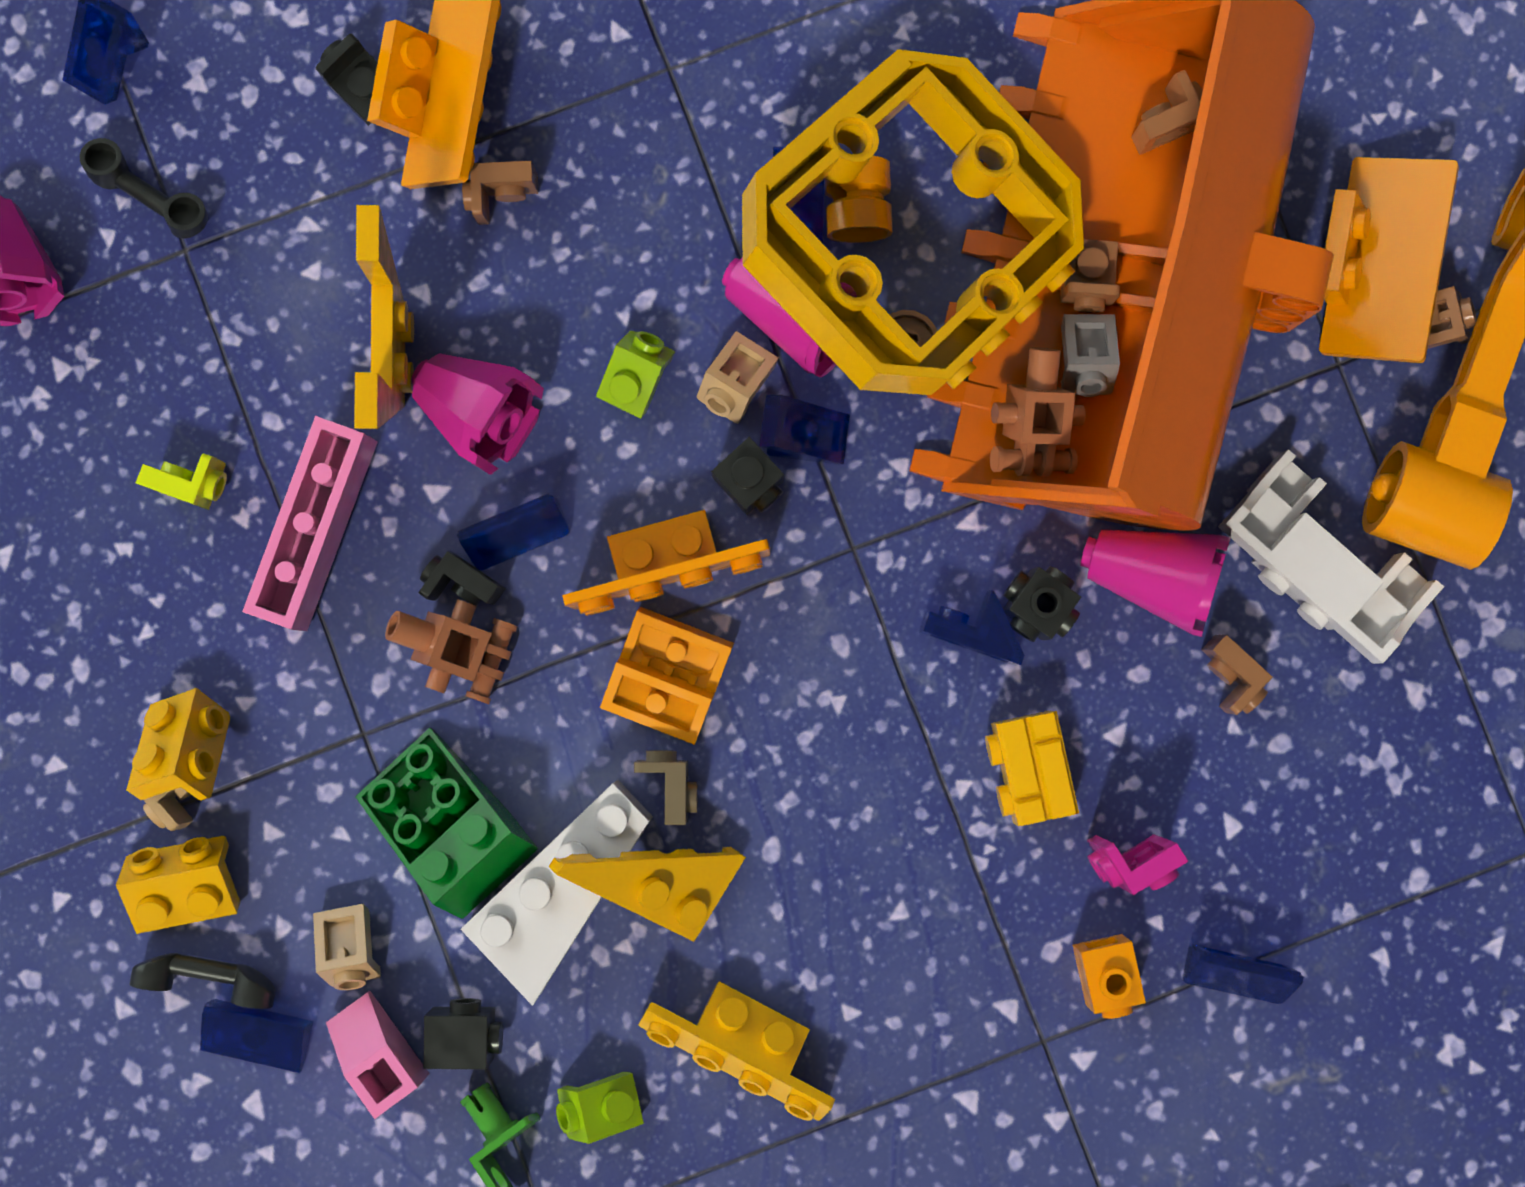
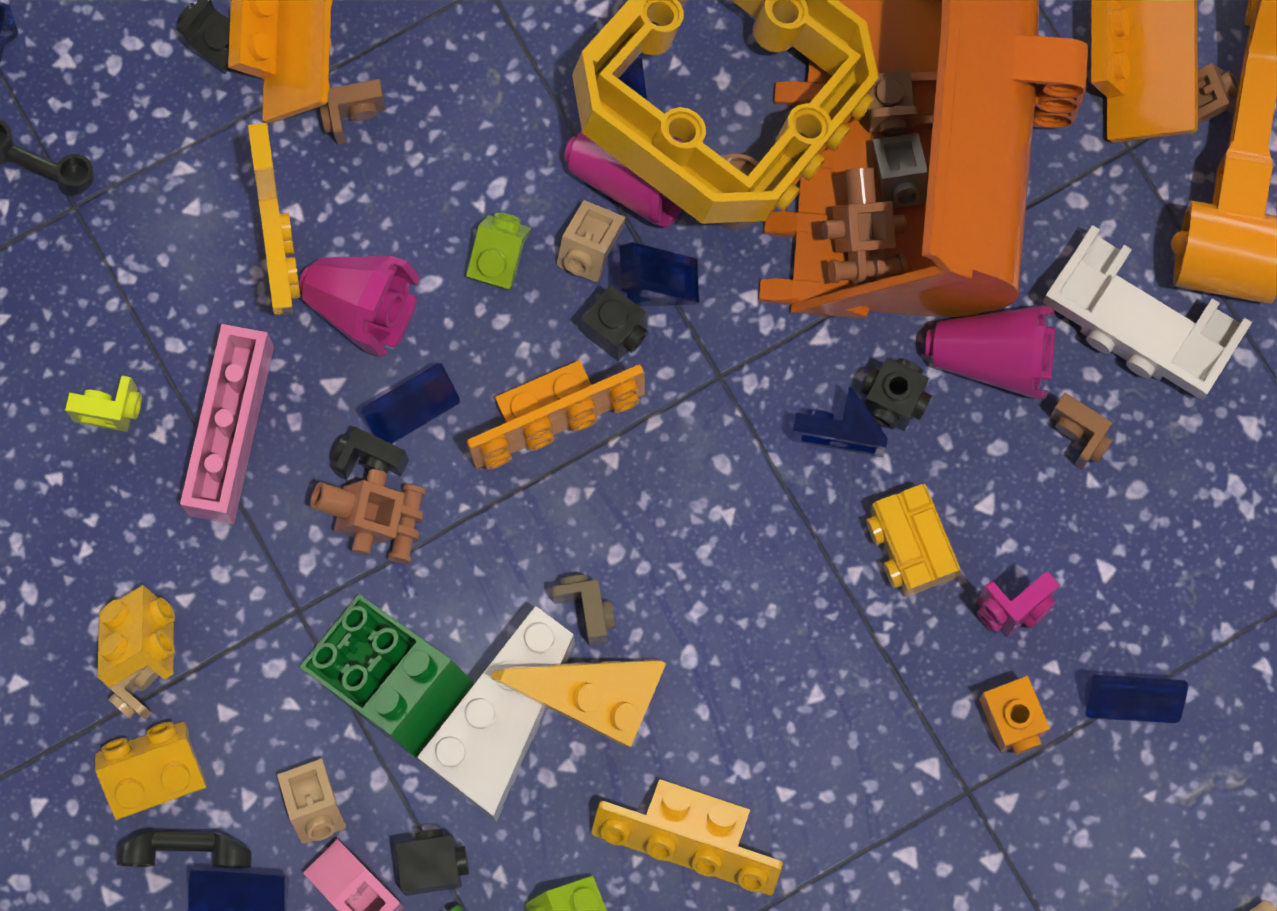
camera: 10 degrees left, 10 degrees down
(666, 675) = (568, 513): light orange slope -> none
(859, 206) = (675, 76): light orange wheel -> none

